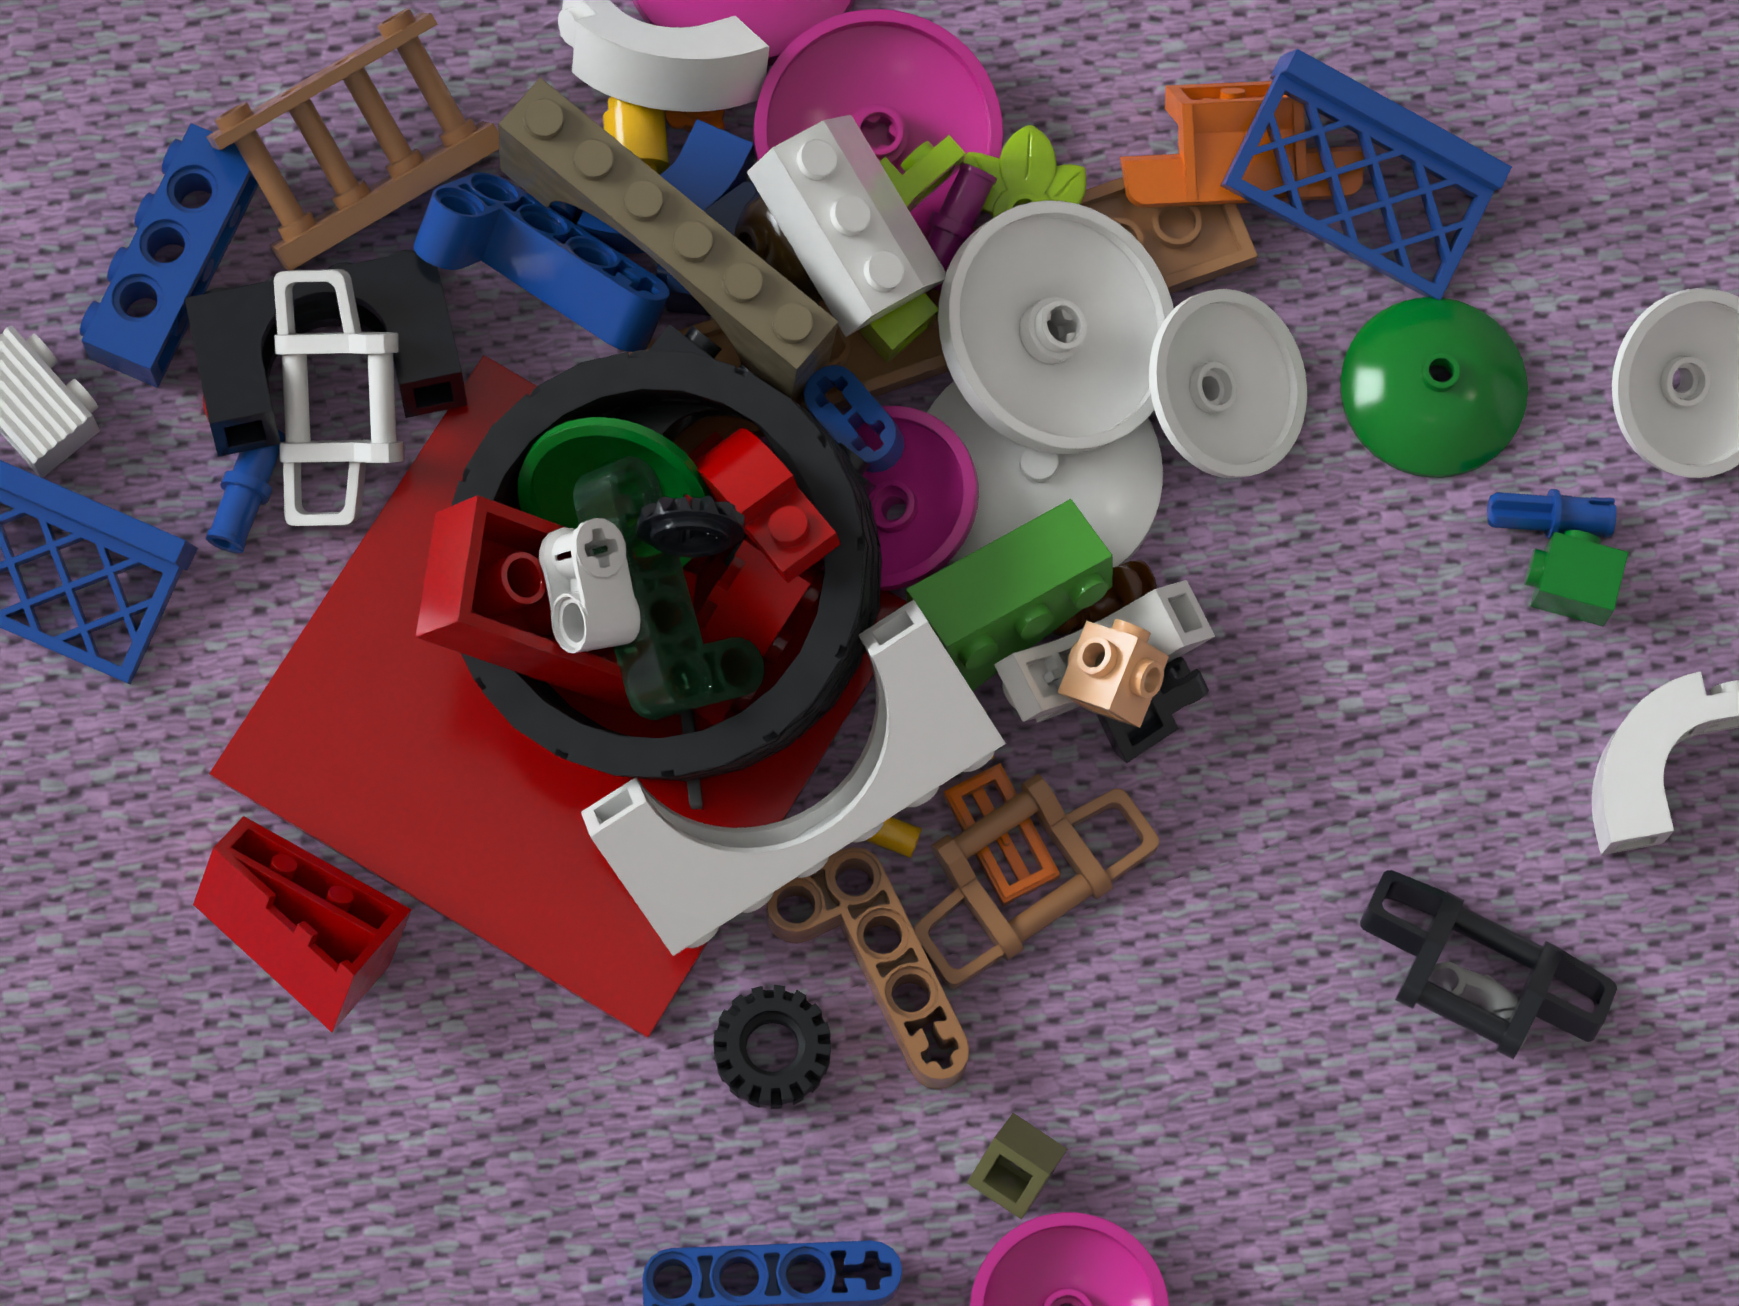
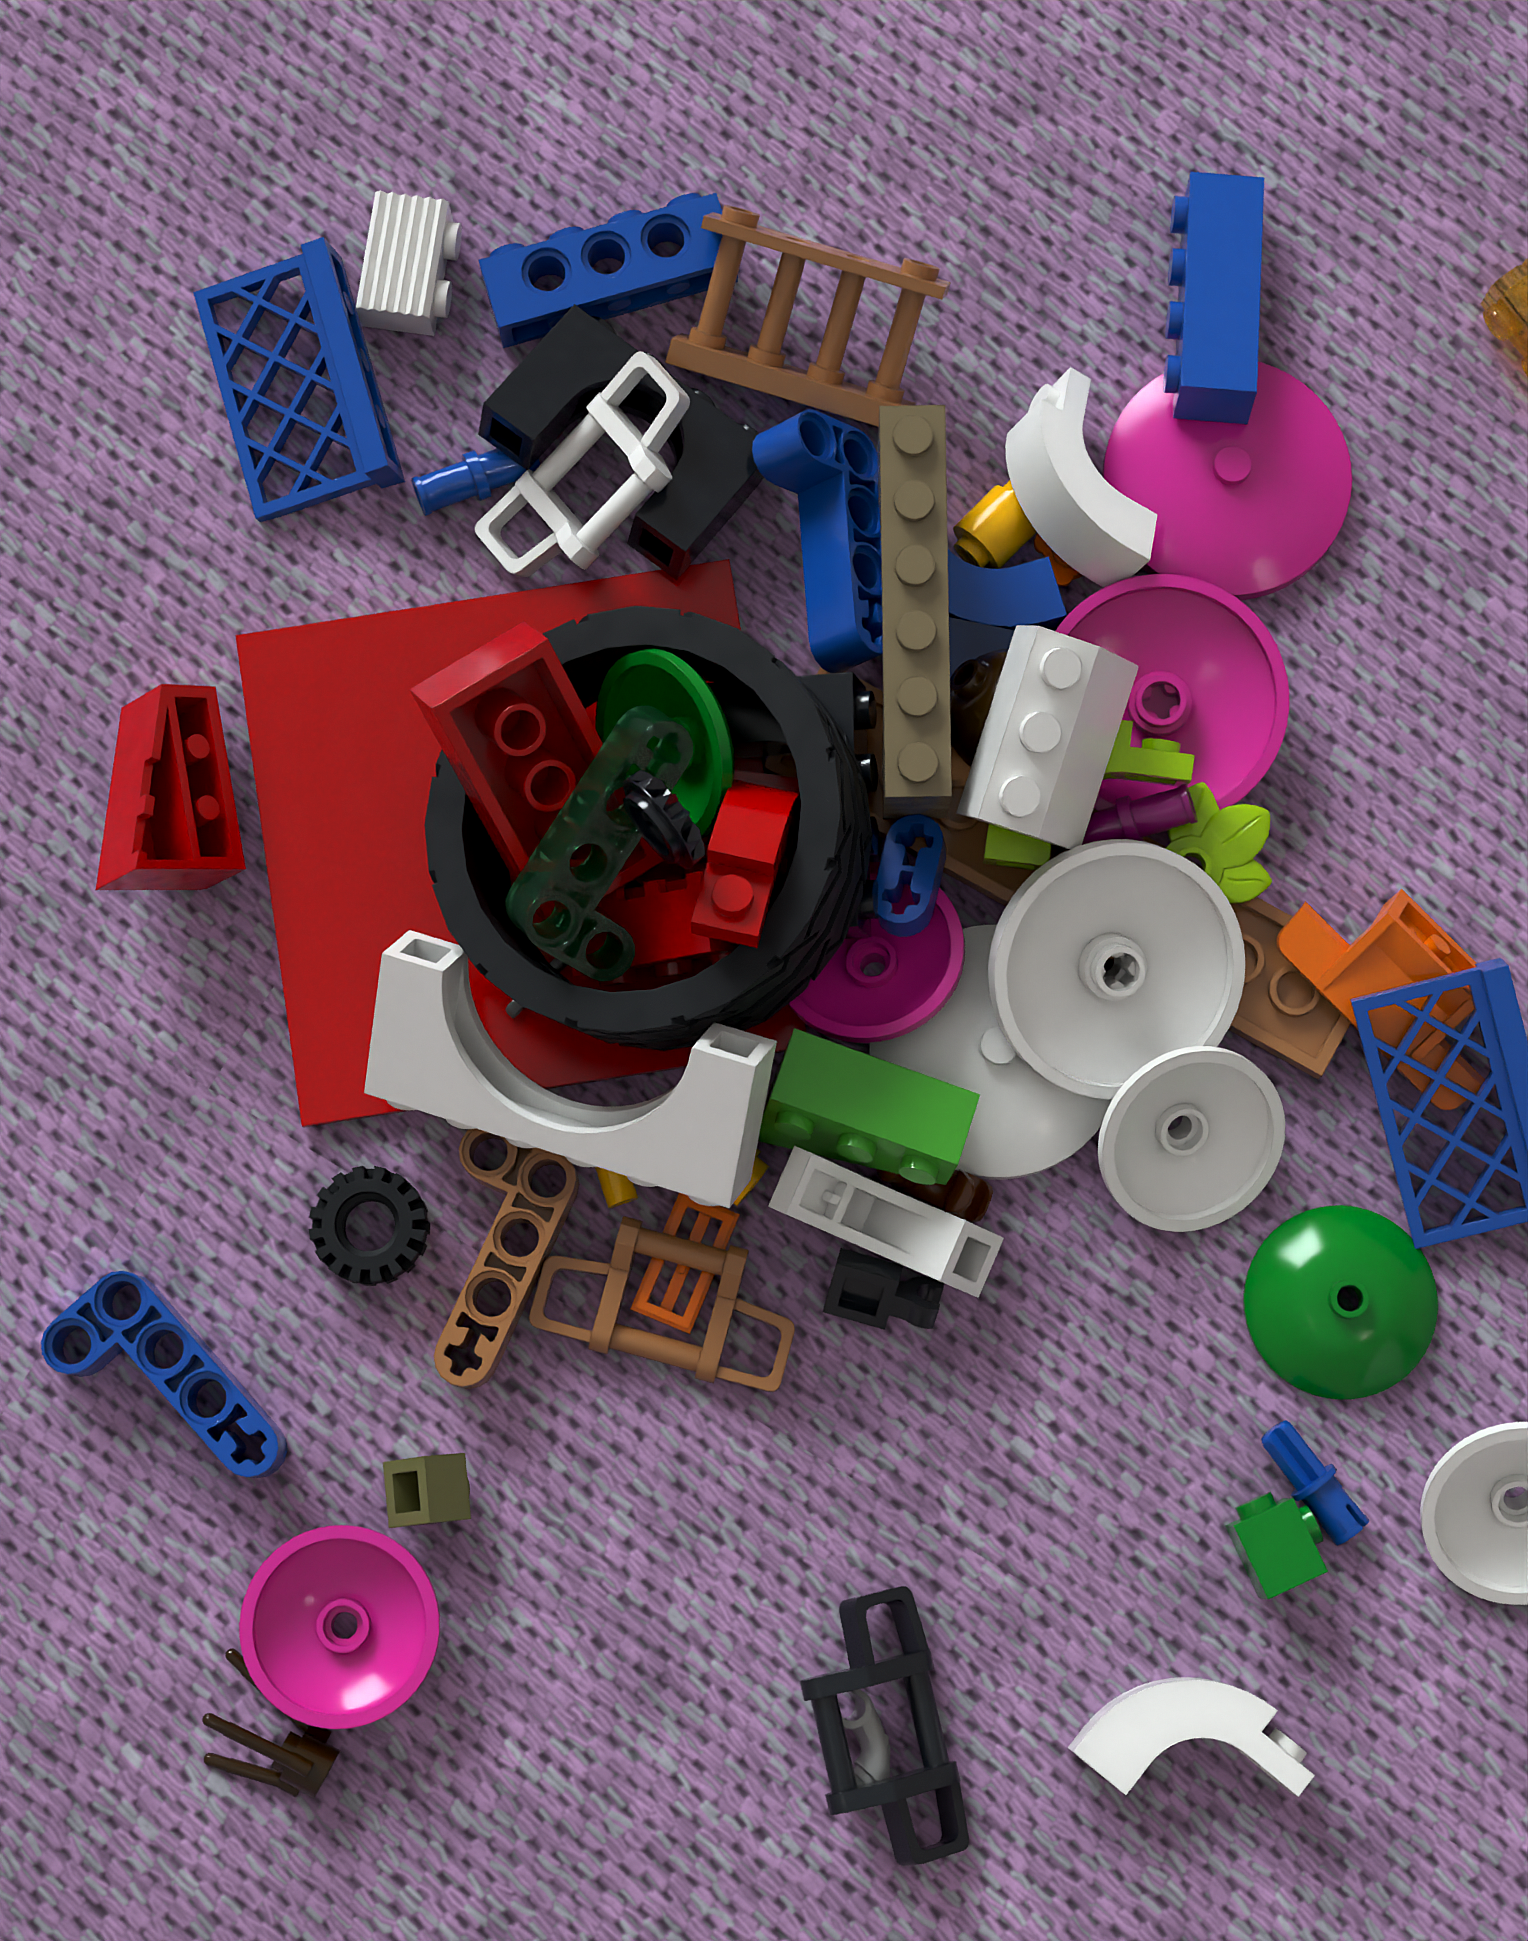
camera: 55 degrees right, 5 degrees up
(589, 592) = (551, 790): white piece -> none
(1114, 671) = (869, 1244): light nougat brick -> none

